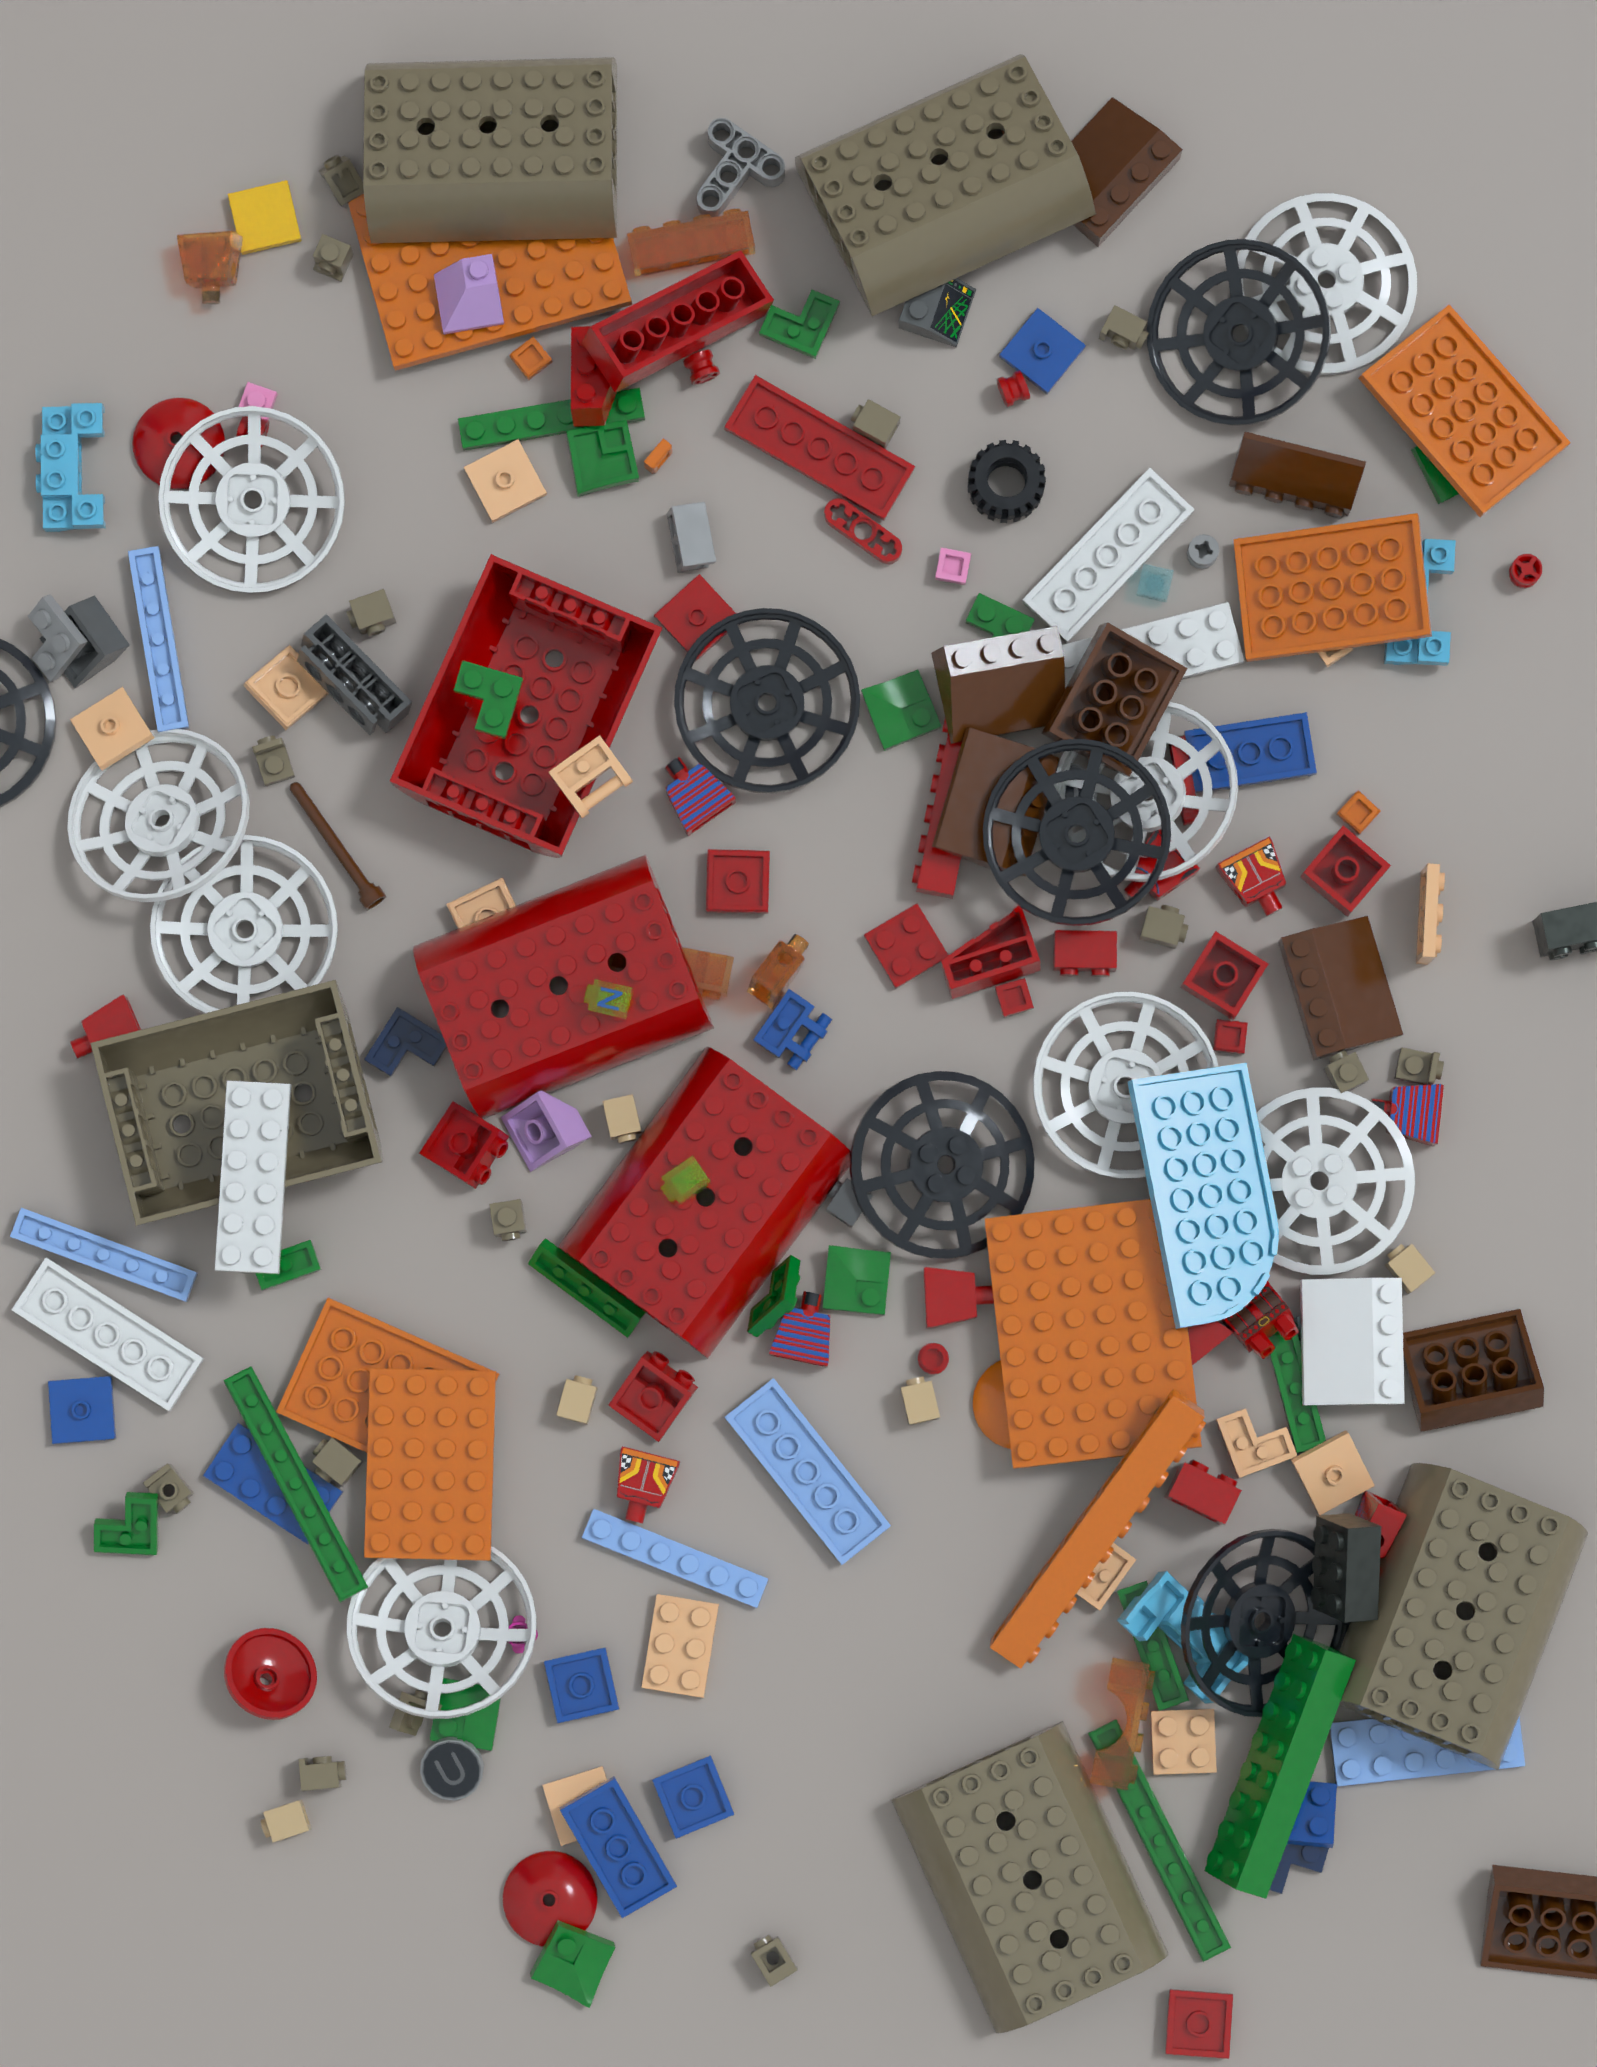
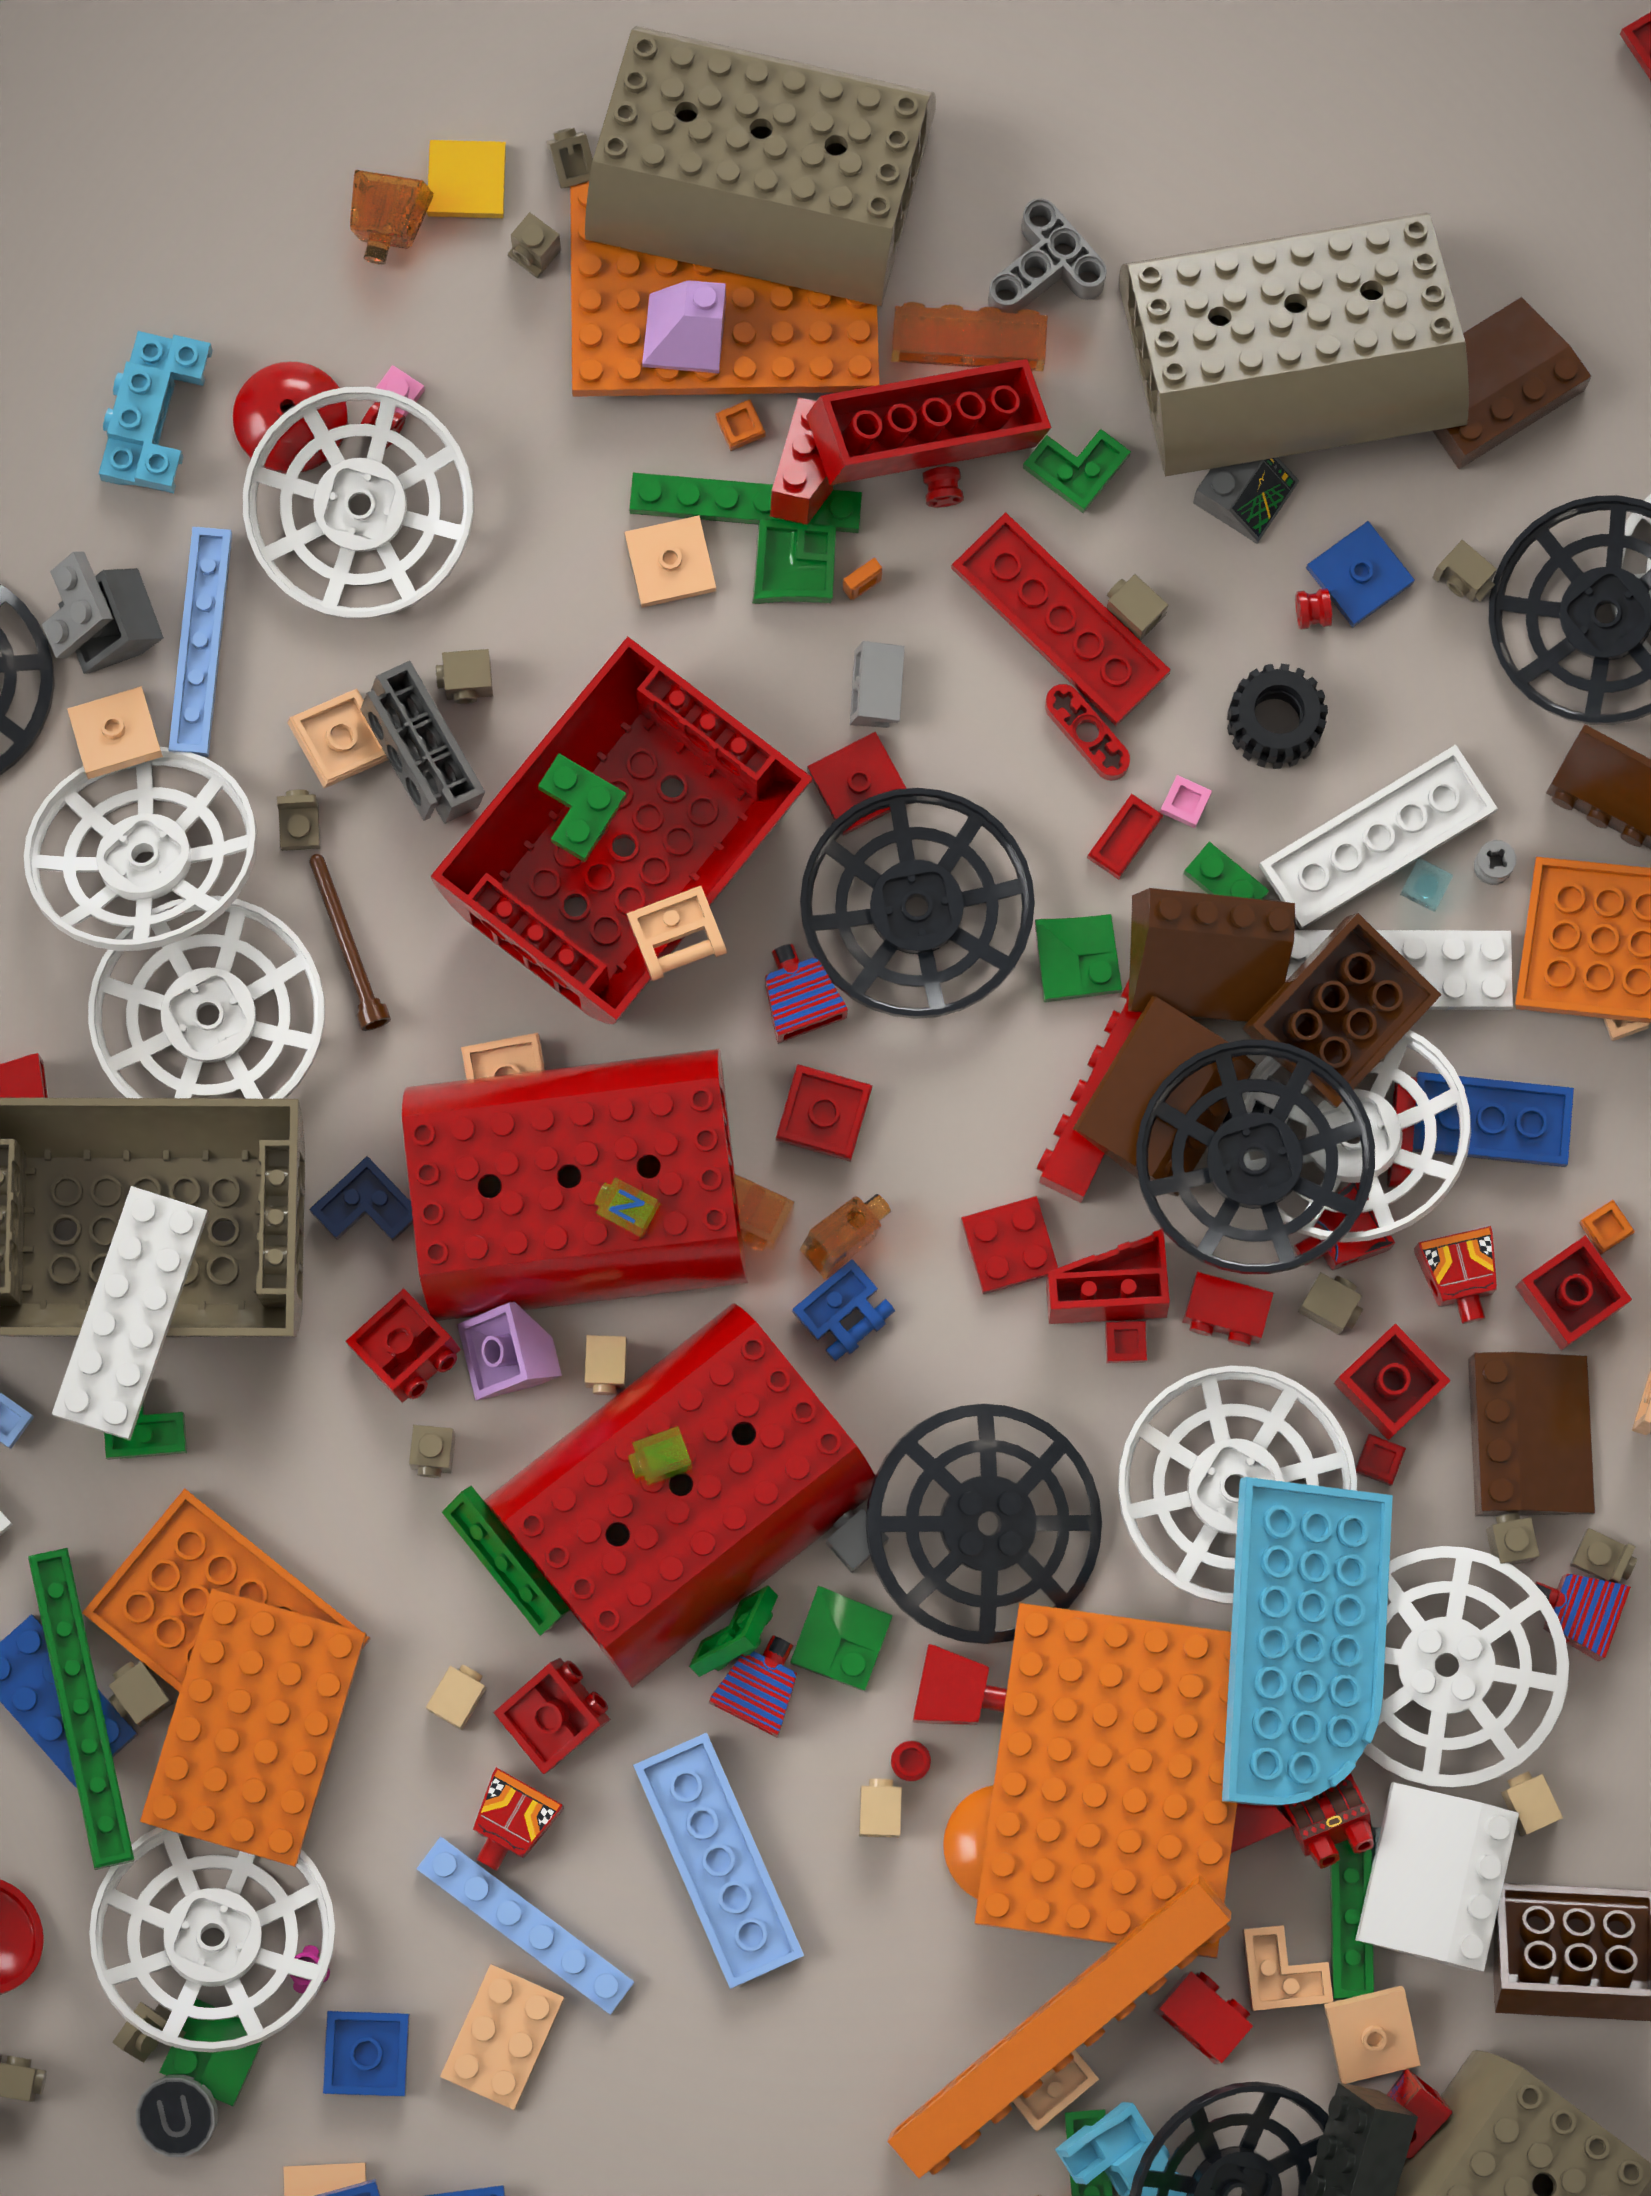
camera: 10 degrees right, 5 degrees down
(913, 605) = (1125, 836): none -> red tile

